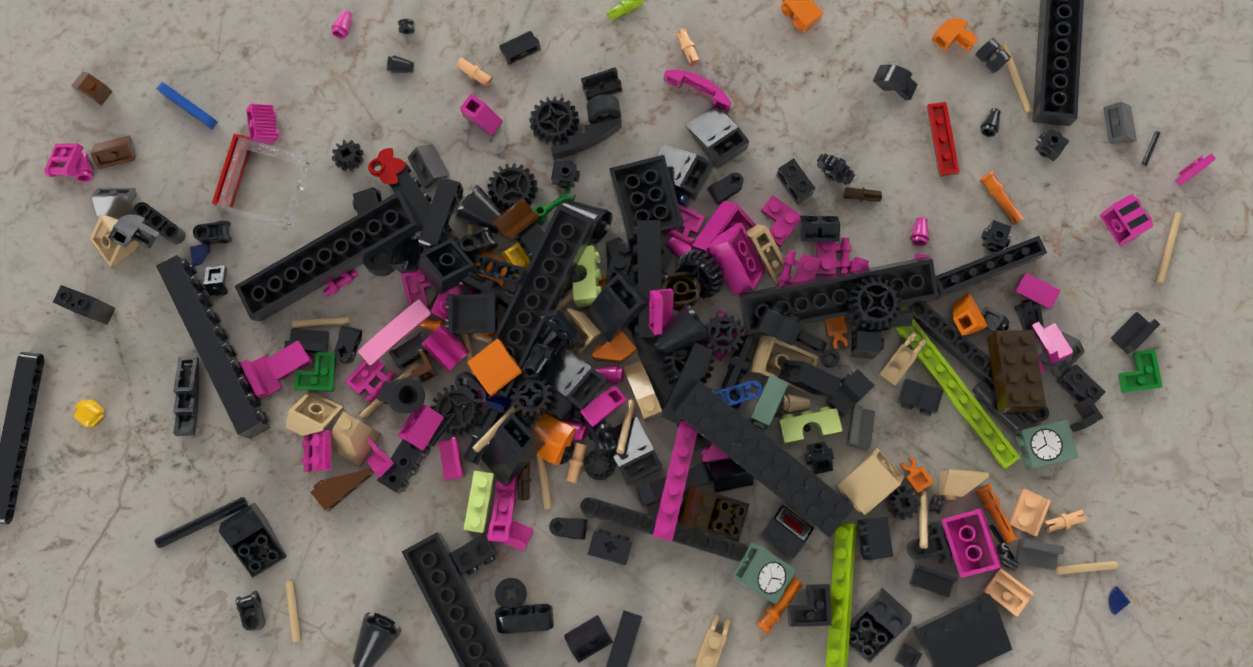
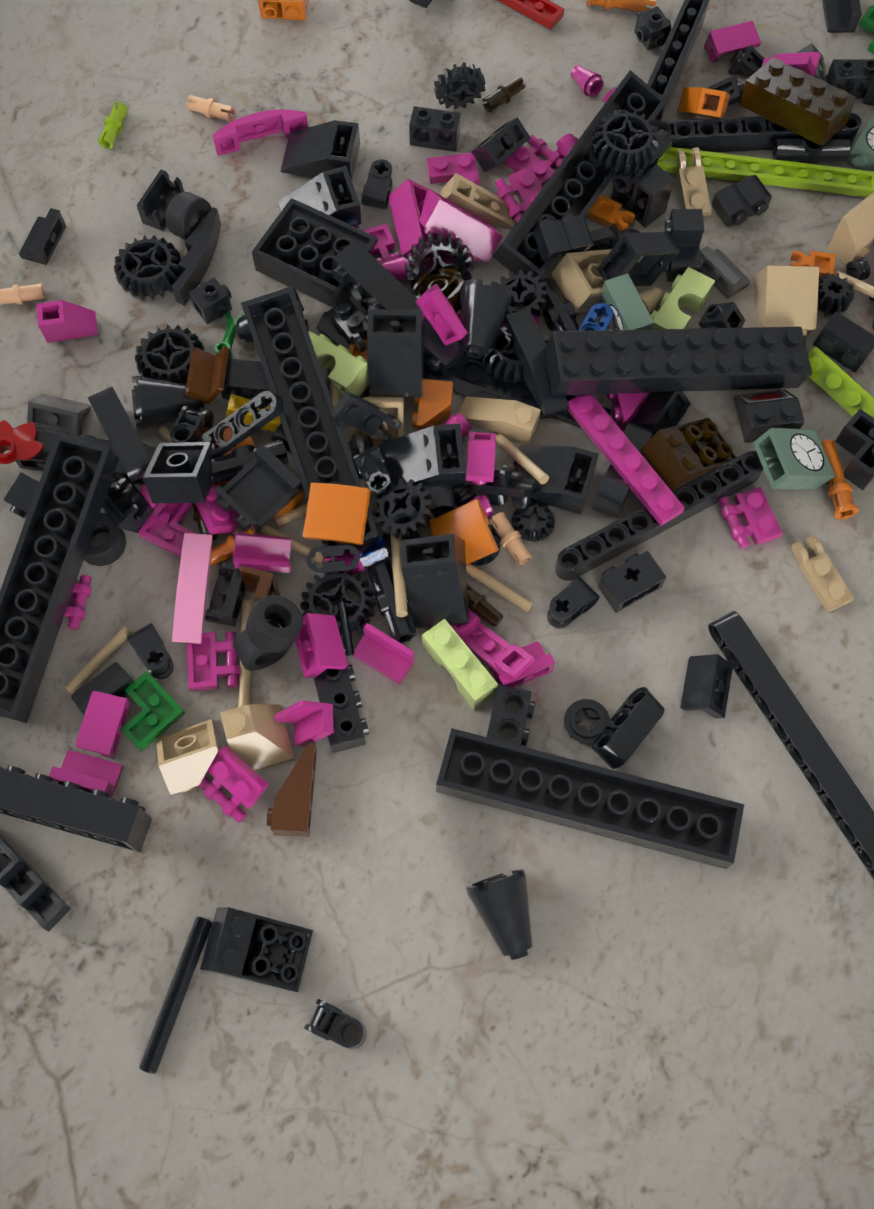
camera: 50 degrees left, 10 degrees down
(292, 611) = (382, 978): tan bar -> none
(716, 580) = (757, 515): none -> dark pink plate

